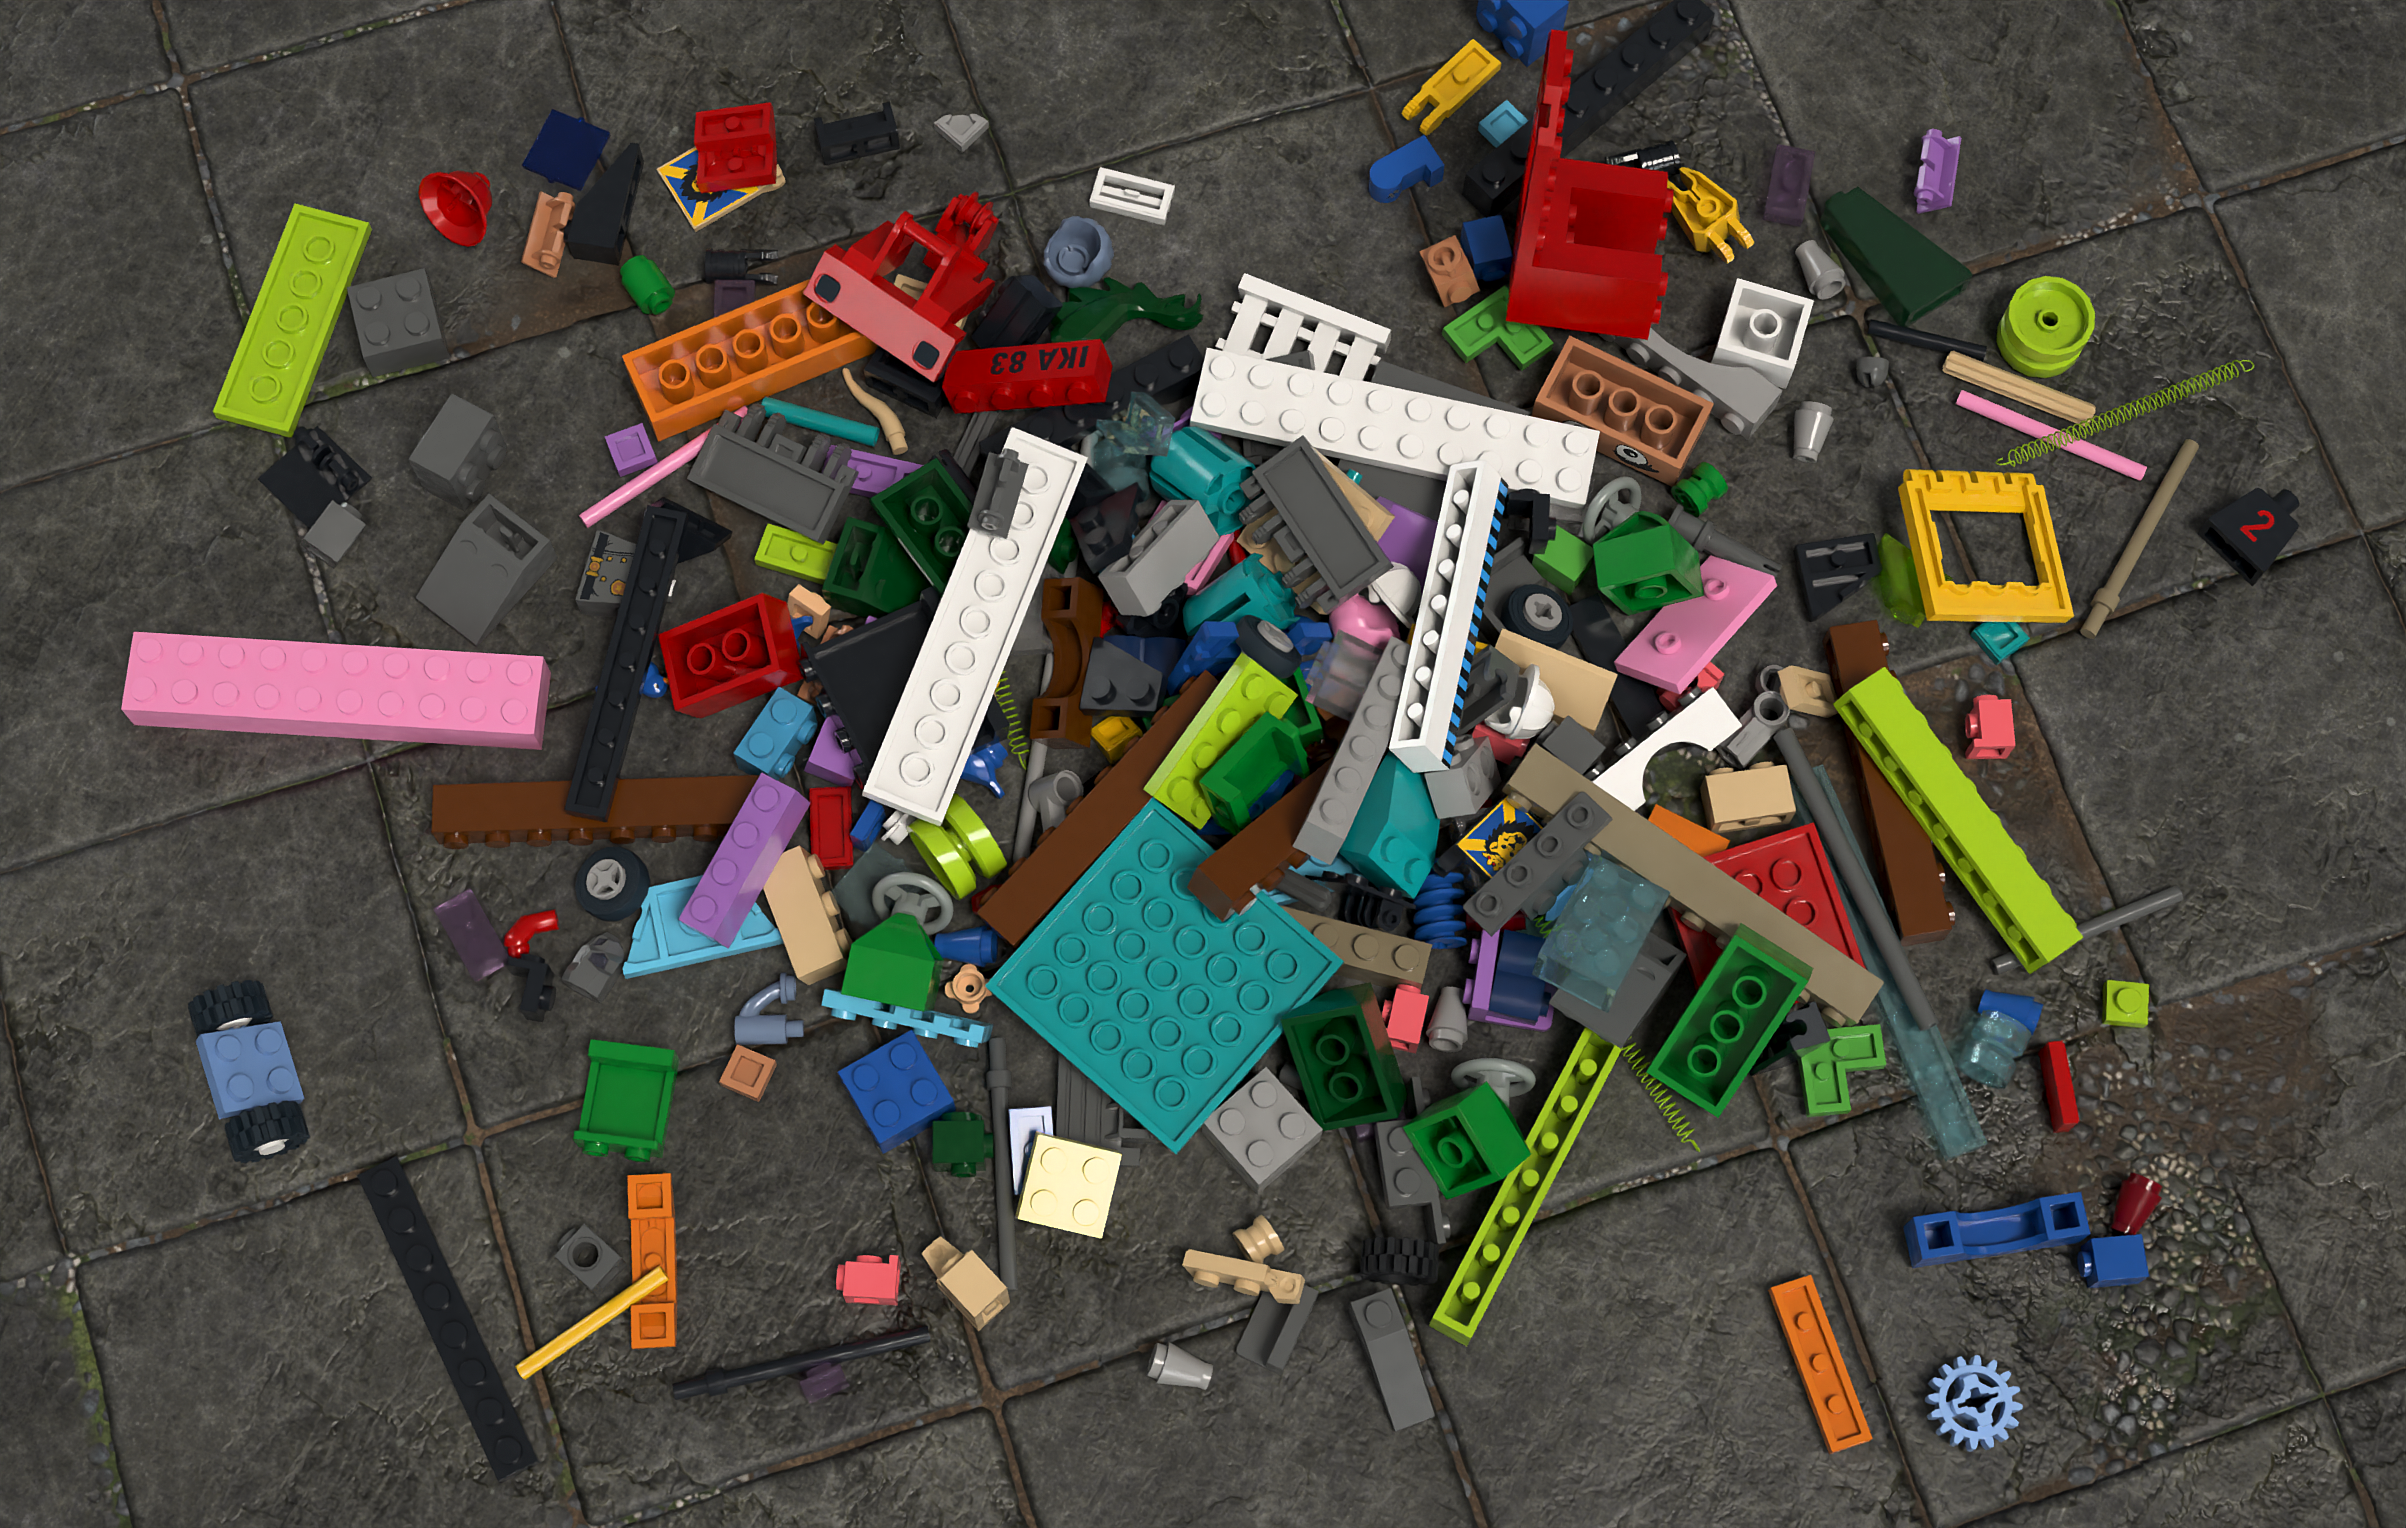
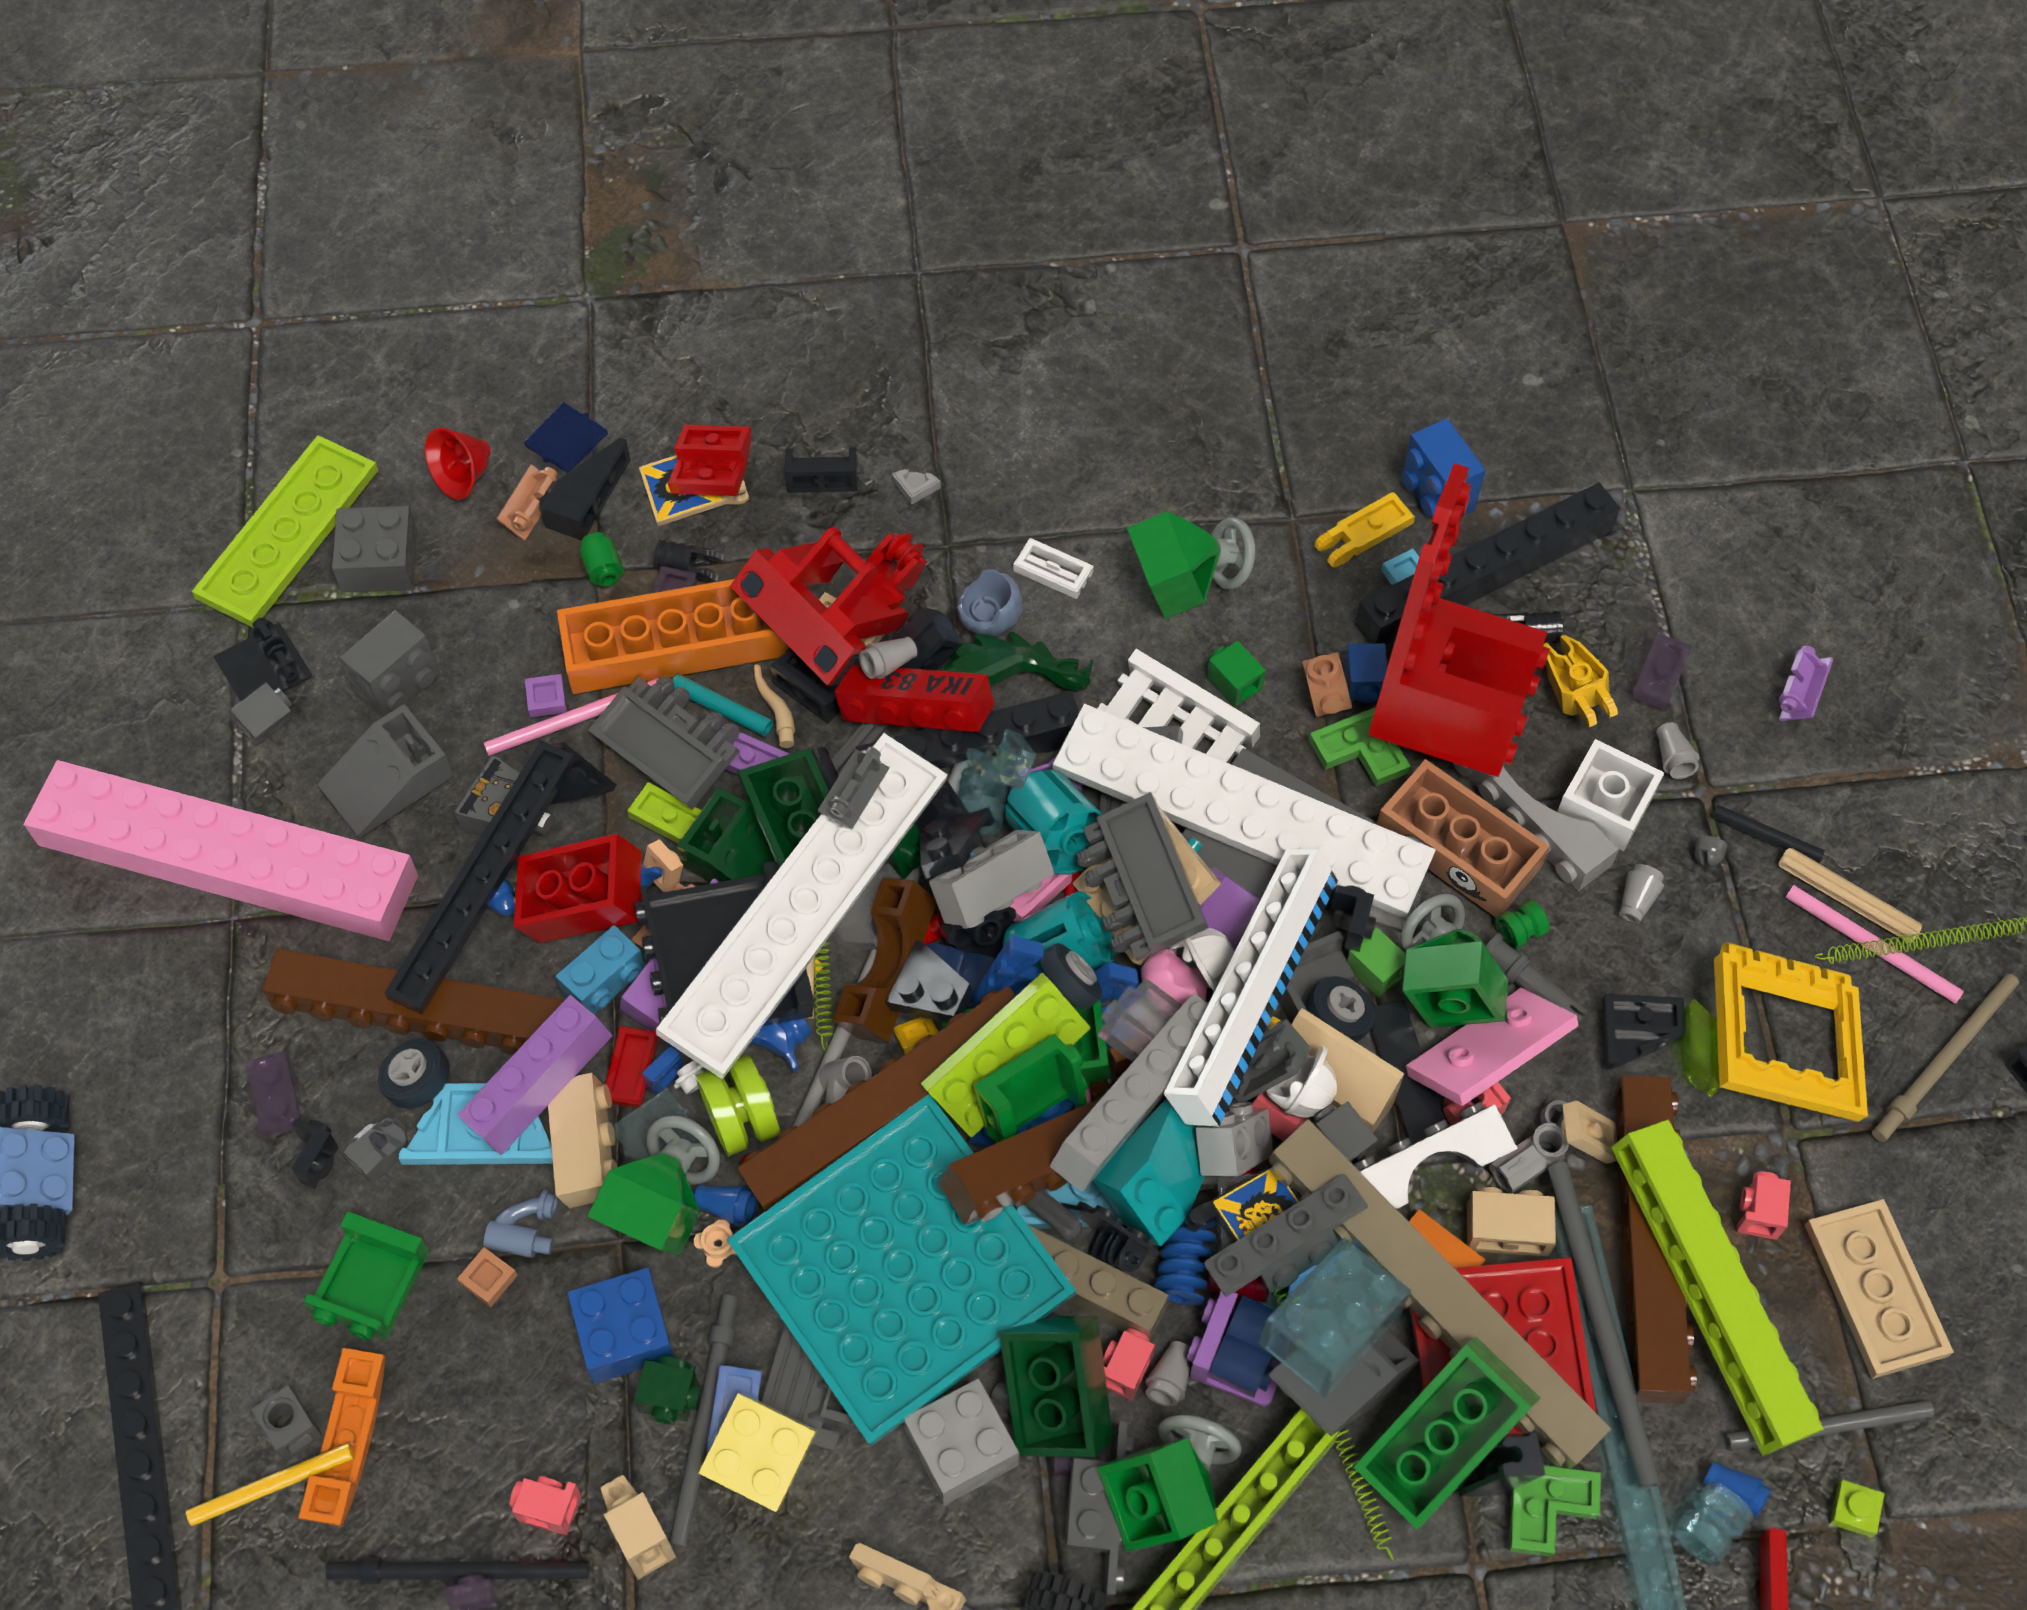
camera: 15 degrees right, 10 degrees down
(525, 928) = (325, 1097): red arm -> none
(926, 1023) = (665, 1264): medium azure wing -> none
(988, 339) = (885, 657): none -> light grey cone
(1258, 1240) = (931, 1551): tan wheel -> none
(1272, 161) = (1184, 558): none -> green piece
(1351, 277) = (1235, 673): none -> green brick
(1403, 169) = (1306, 590): blue leg -> none
(1892, 257) = (1748, 753): clear green slope -> none
(1999, 639) = (1790, 1123): teal tile -> none
(2045, 327) = (1885, 842): lime wheel -> none
(2111, 786) = (1878, 1289): none -> tan plate

